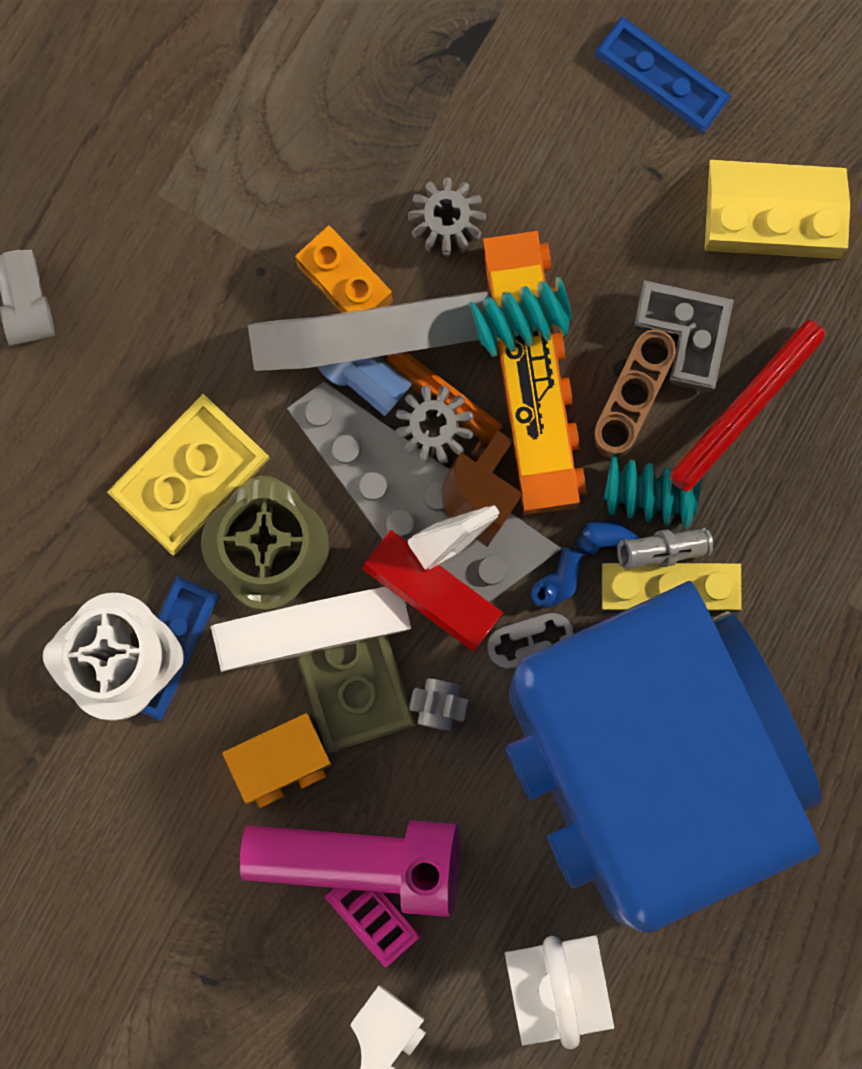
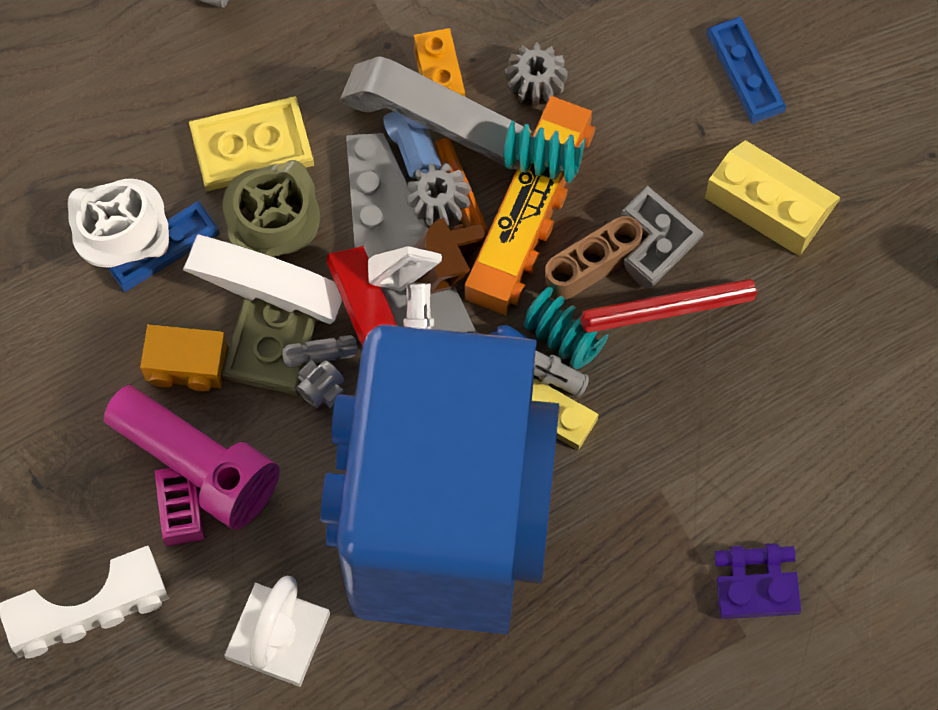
camera: 30 degrees right, 15 degrees down
(414, 668) = (320, 350): none -> light grey axle
(502, 580) = (418, 306): none -> white pin

